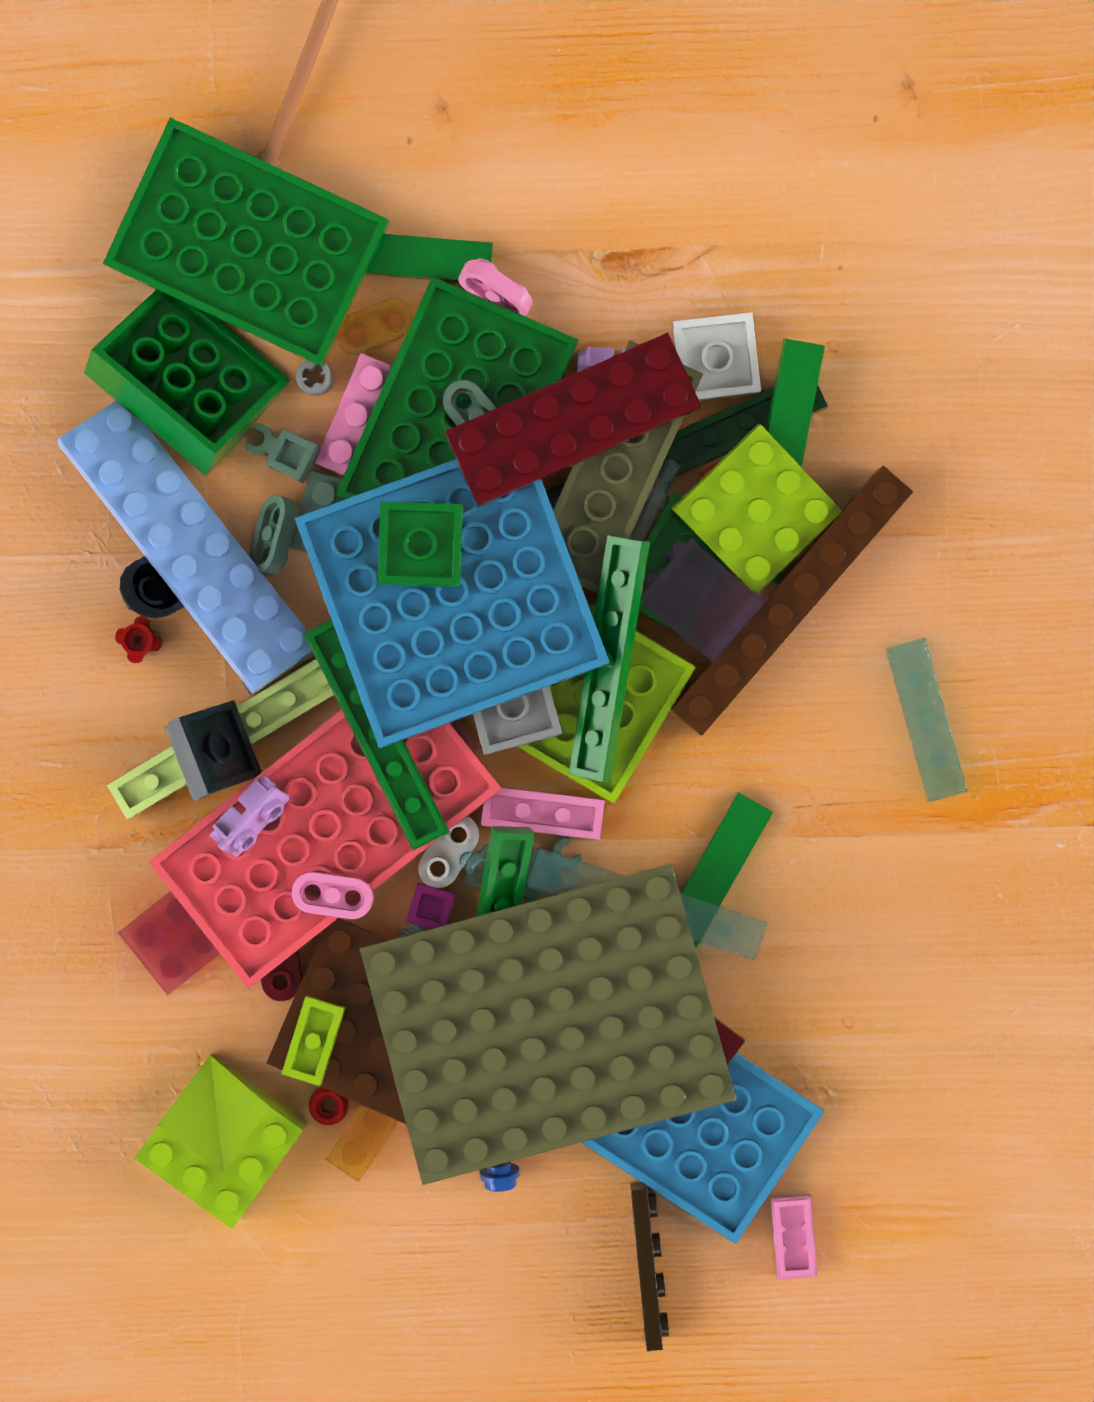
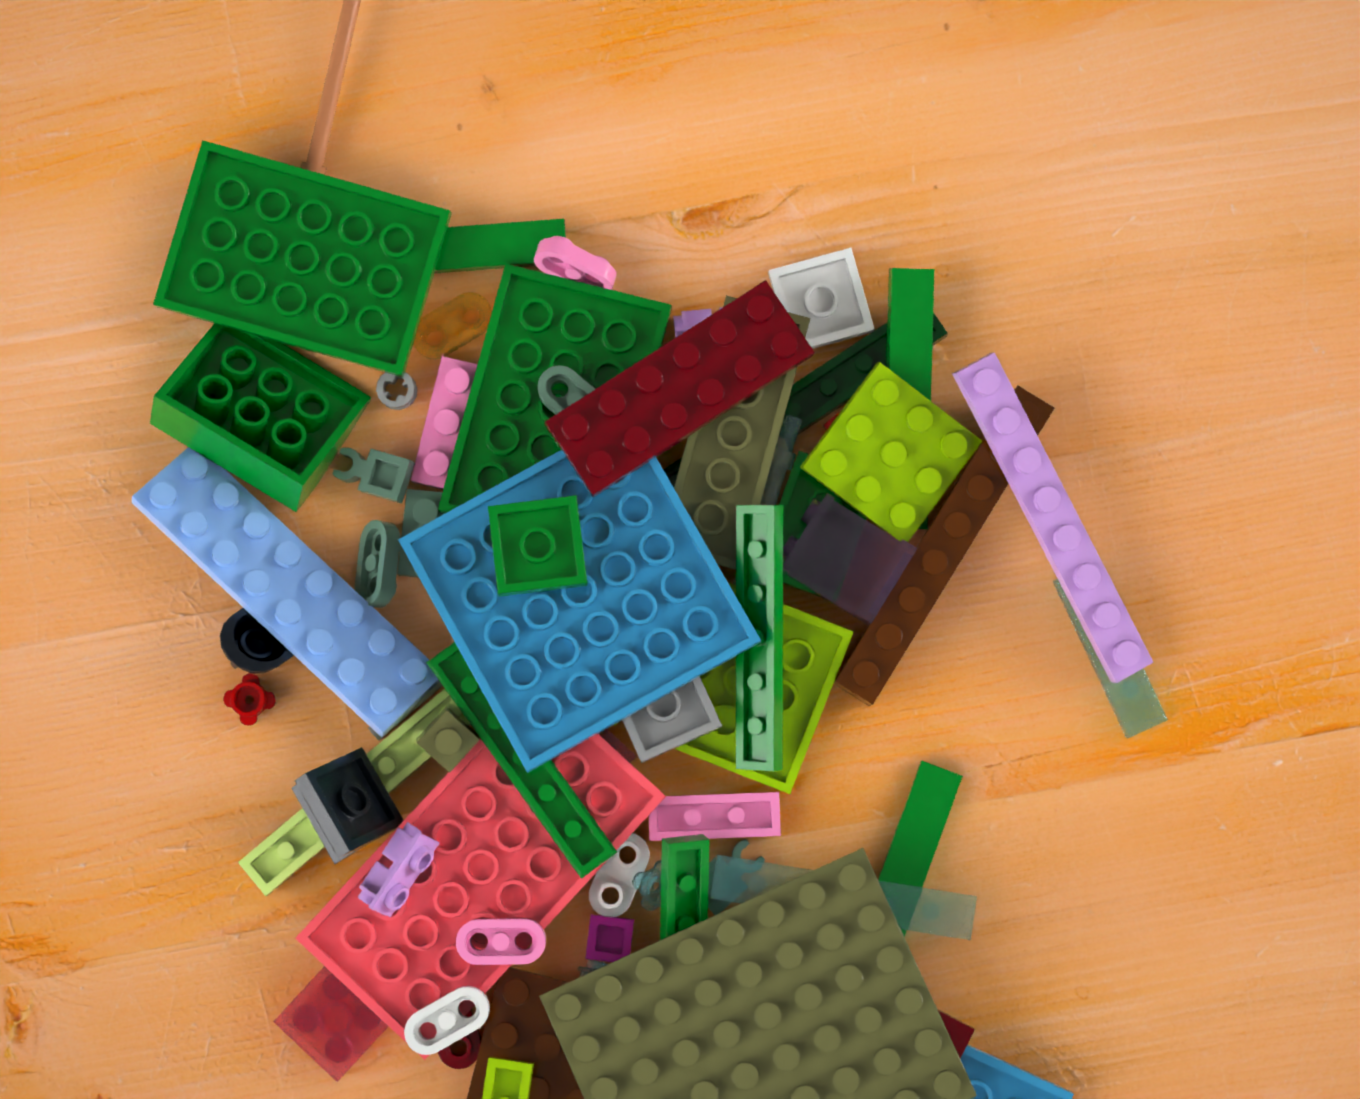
camera: 10 degrees left, 5 degrees down
(274, 957) = (448, 1020): none -> white plate
(312, 705) = (448, 739): none -> olive brick
(893, 591) = (1052, 517): none -> lavender plate

